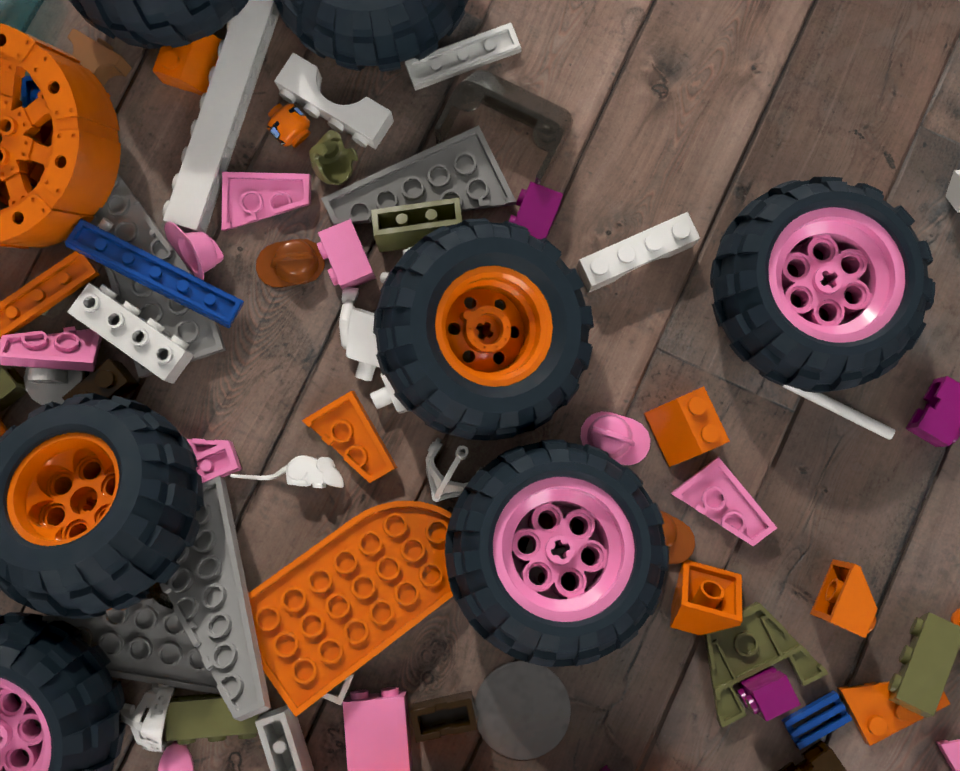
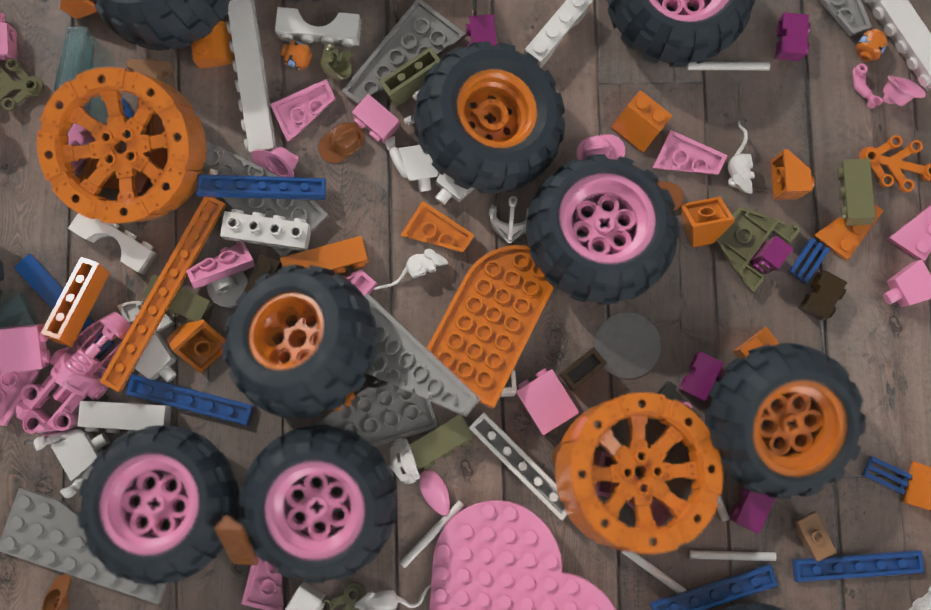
camera: 30 degrees left, 0 degrees up
(194, 406) = (333, 256): none -> orange brick
(786, 551) = (740, 167): none -> white animal

